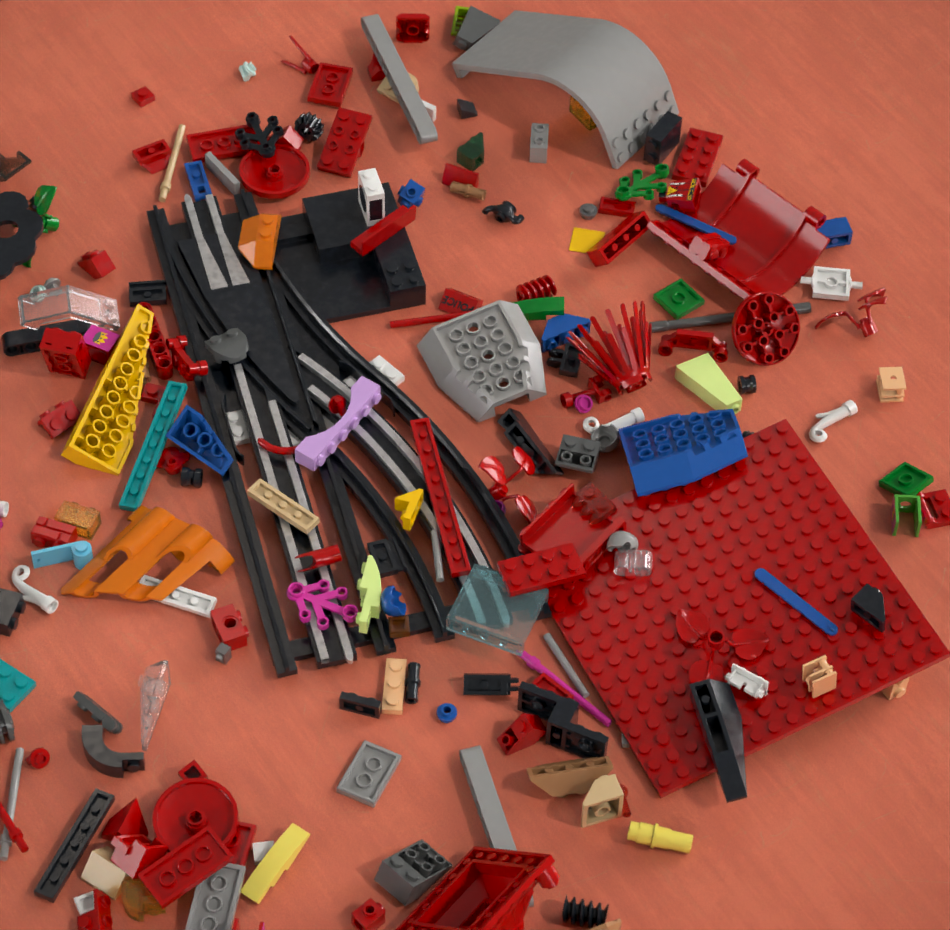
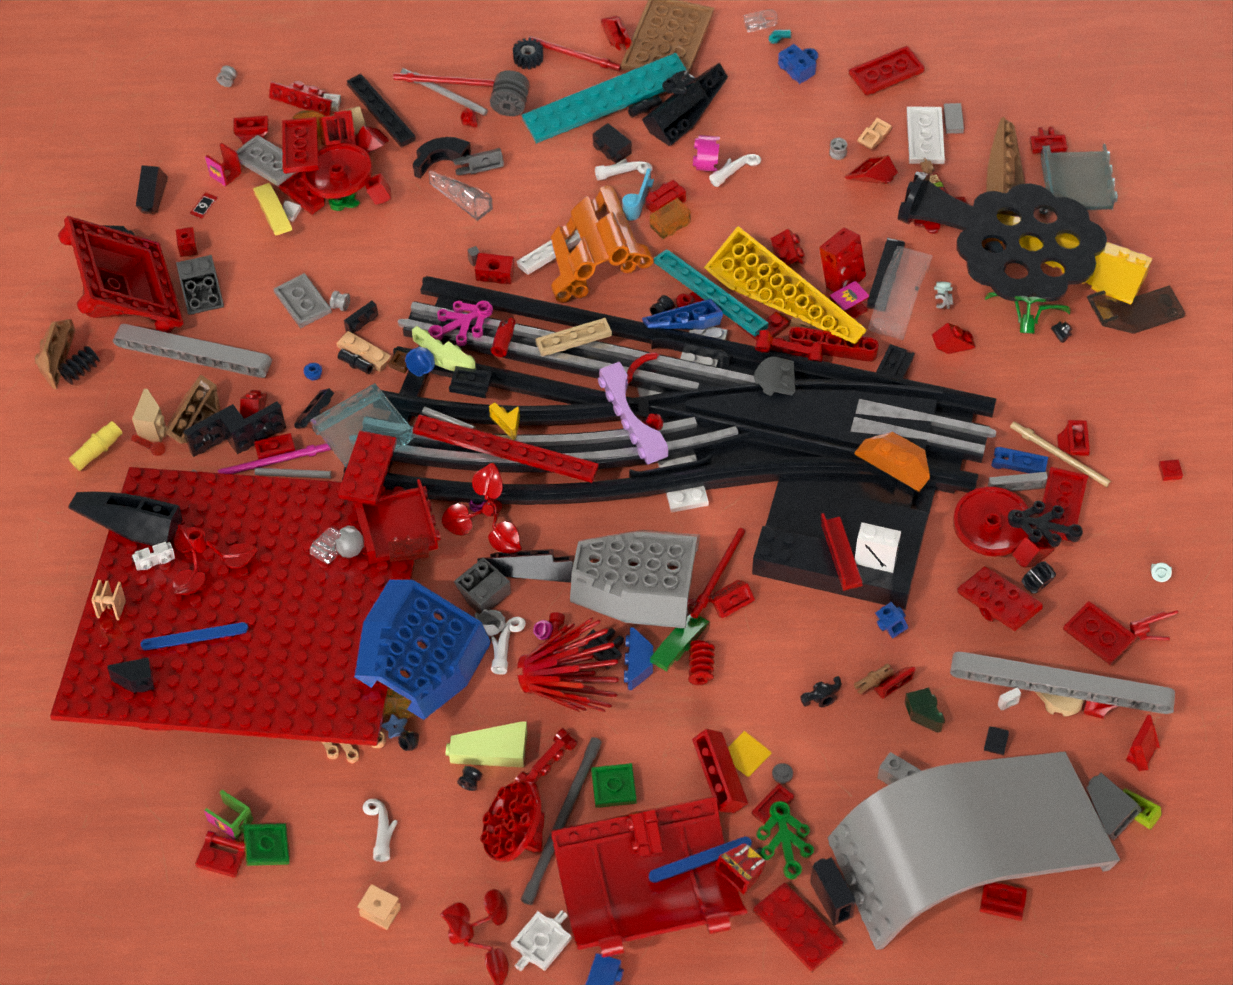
camera: 125 degrees right, 5 degrees up
(352, 734) = (339, 300): none -> light grey wheel

